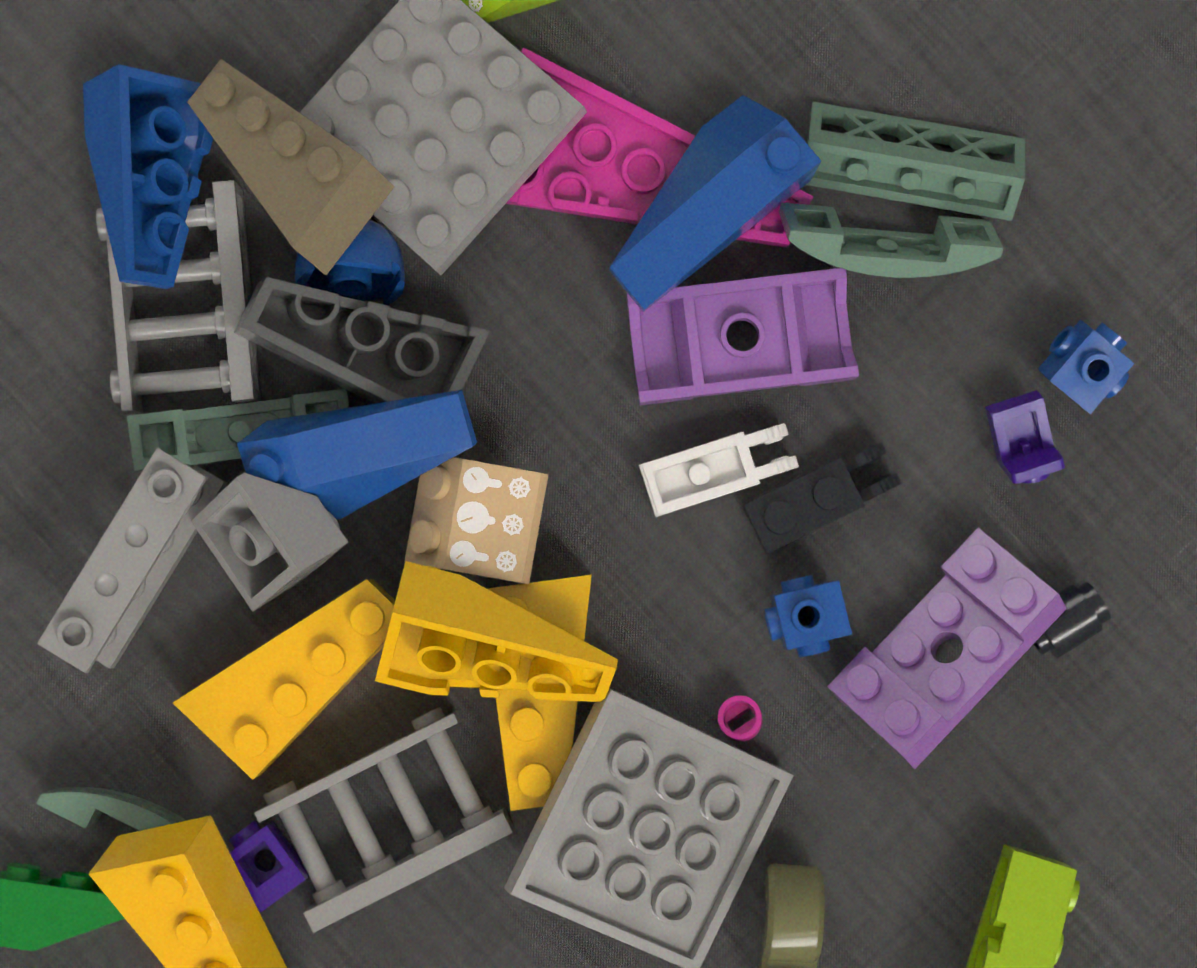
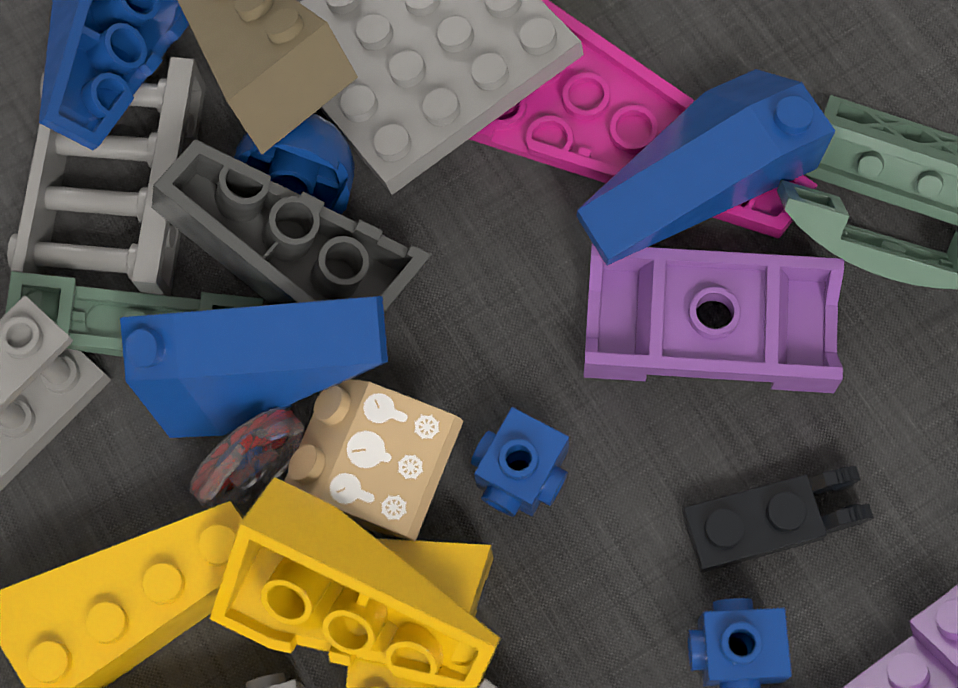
camera: 20 degrees right, 15 degrees down
(267, 536) = (132, 432): light grey slope -> none
(372, 538) = (249, 454): none -> clear tile
(601, 476) = (523, 443): none -> blue brick
(711, 470) = (655, 461): white hinge -> none

